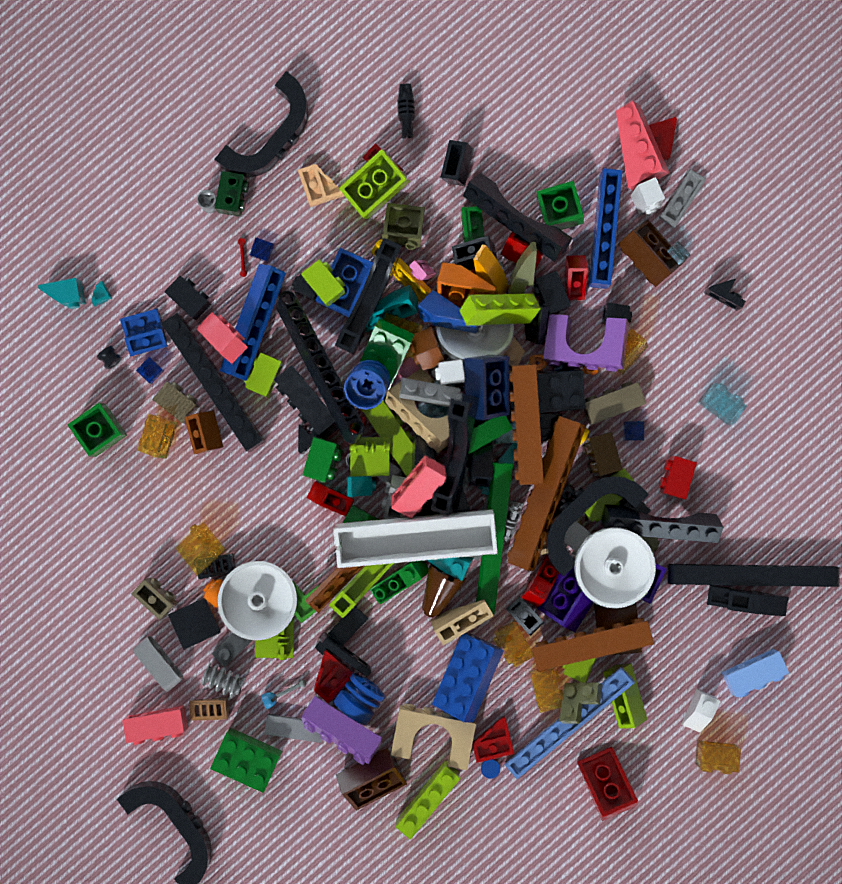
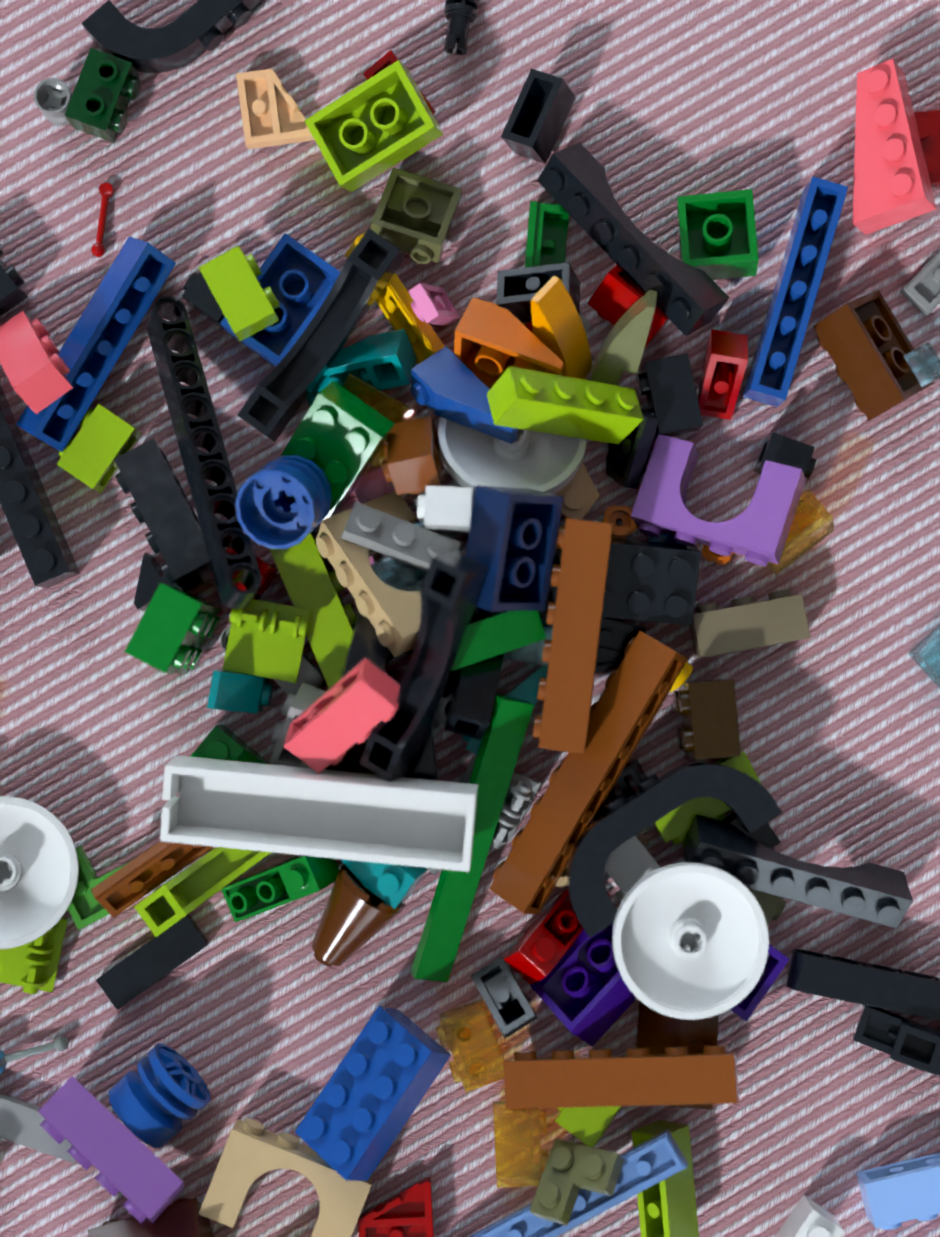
camera: 10 degrees right, 0 degrees up
(261, 249) = (141, 212): clear blue tile -> none
(330, 498) = (177, 704): red slope -> none
(331, 676) = (116, 1041): red wing -> none
(345, 654) = (150, 1005): black tile -> none
(460, 620) = (378, 982): tan slope -> none
(634, 431) = (777, 685): clear blue plate -> none
(647, 197) = (886, 247): white brick -> none
(677, 477) = (843, 788): red brick -> none

